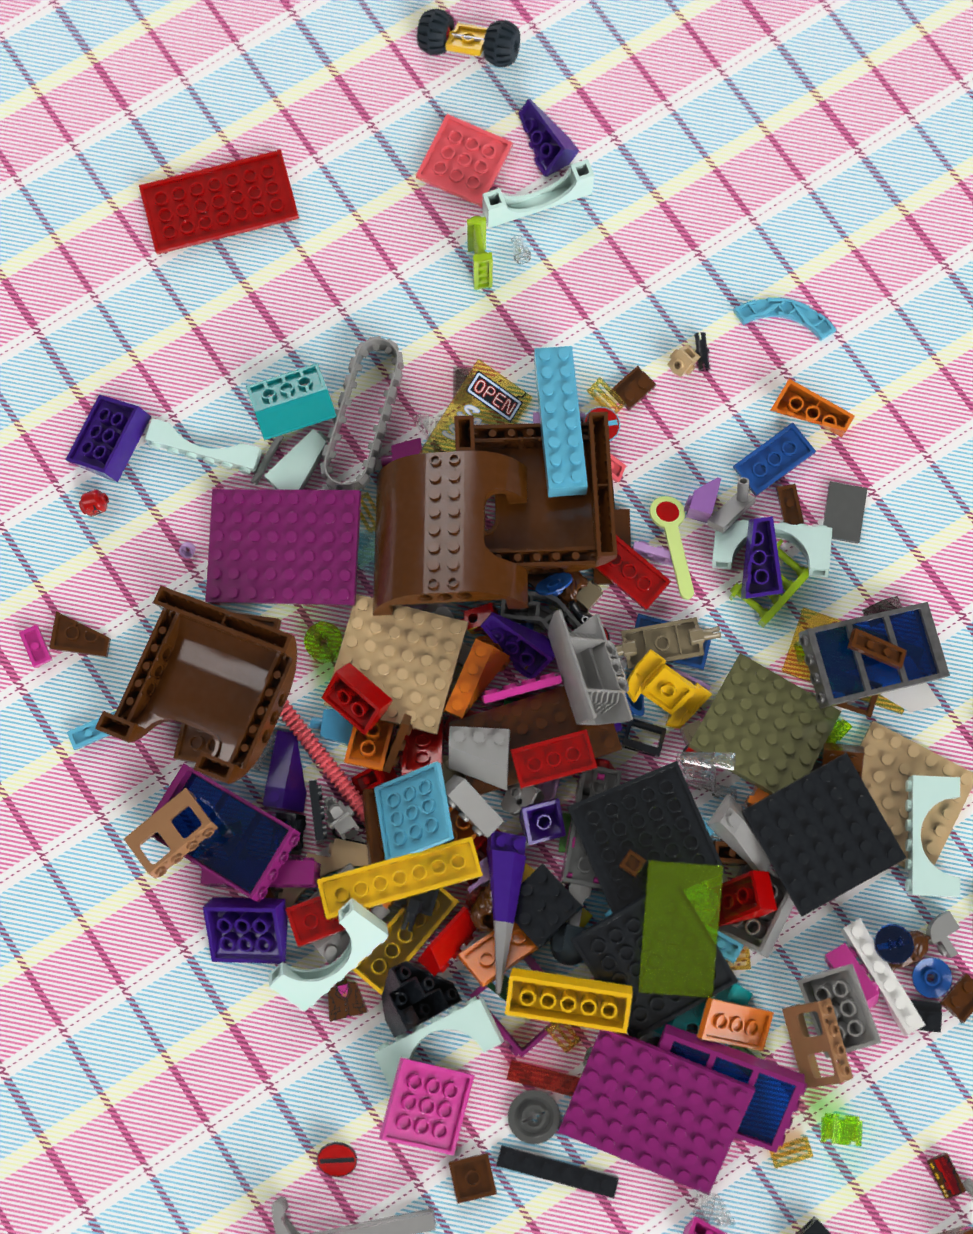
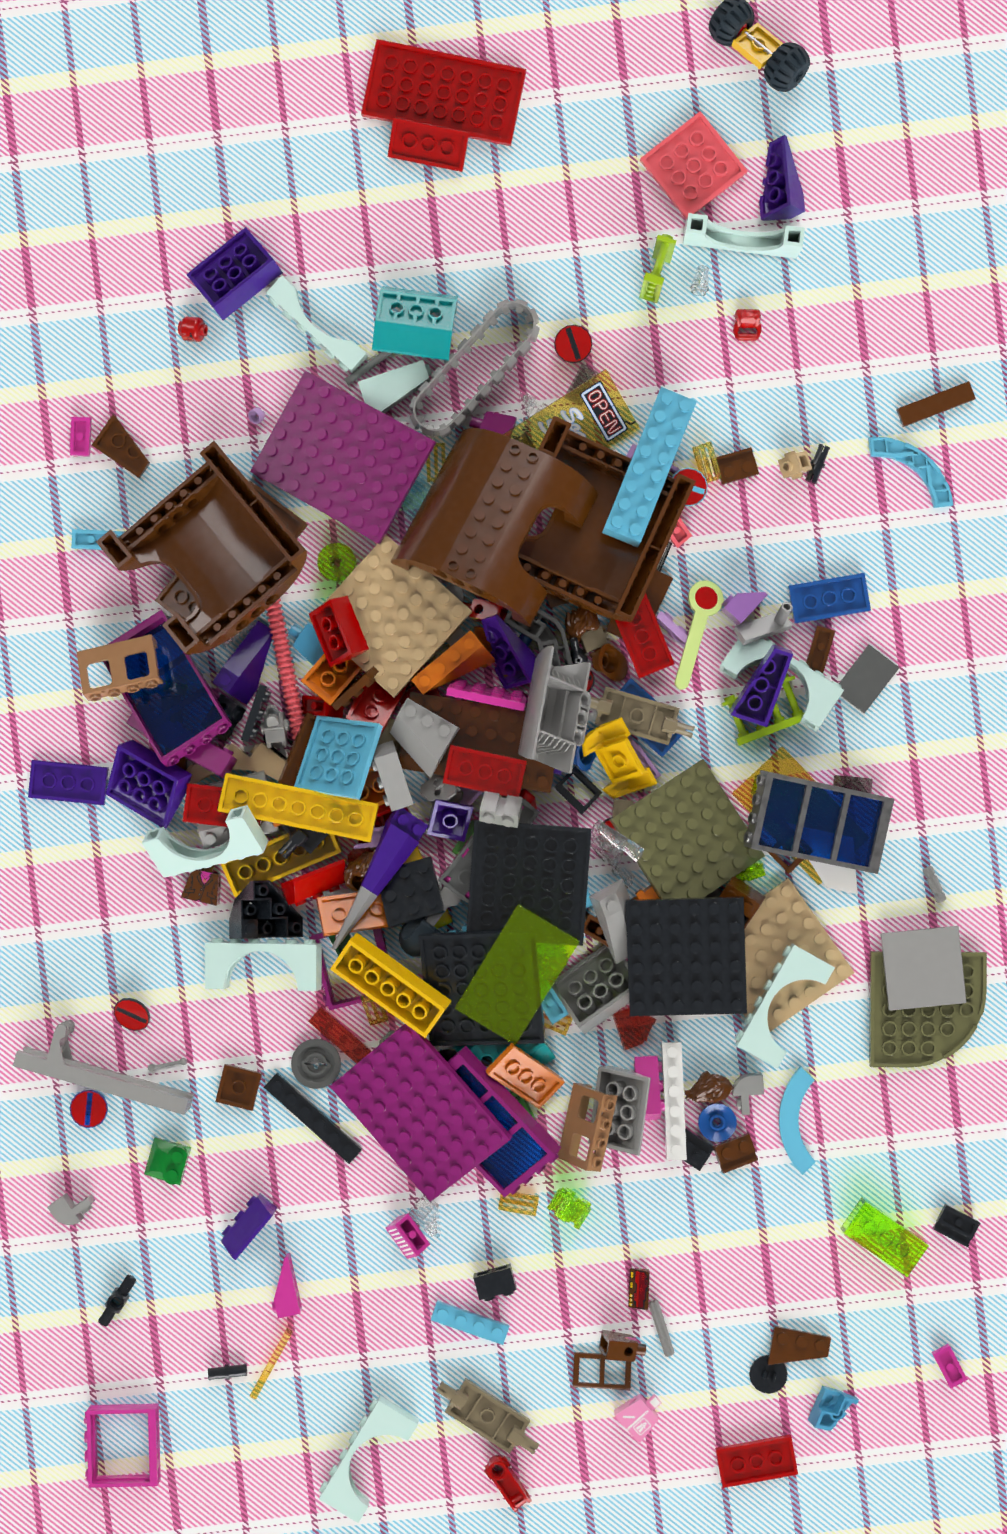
camera: 25 degrees right, 10 degrees up
(171, 968) = (68, 782): none -> dark purple tile
(227, 249) = (428, 144): none -> red plate
(380, 1202) = (152, 1067): none -> light grey hinge
(426, 1106) = (228, 1009): dark pink plate -> none
(437, 353) = (573, 343): none -> red piece
(554, 584) = (566, 615): blue dish -> none
(576, 262) = (747, 319): none -> red piece
(586, 785) = (500, 809): none -> light grey brick
(612, 609) = (609, 662): none -> reddish brown piece
(632, 863) = (505, 897): reddish brown tile -> none
(746, 897) = (590, 974): red slope -> none
(774, 254) = (935, 404): none -> reddish brown tile
(807, 930) = (632, 1029): none -> clear red slope
(808, 406) = (884, 565): orange wedge -> none
(877, 648) = (822, 819): reddish brown plate -> none
(894, 944) = (698, 1078): clear blue piece -> none

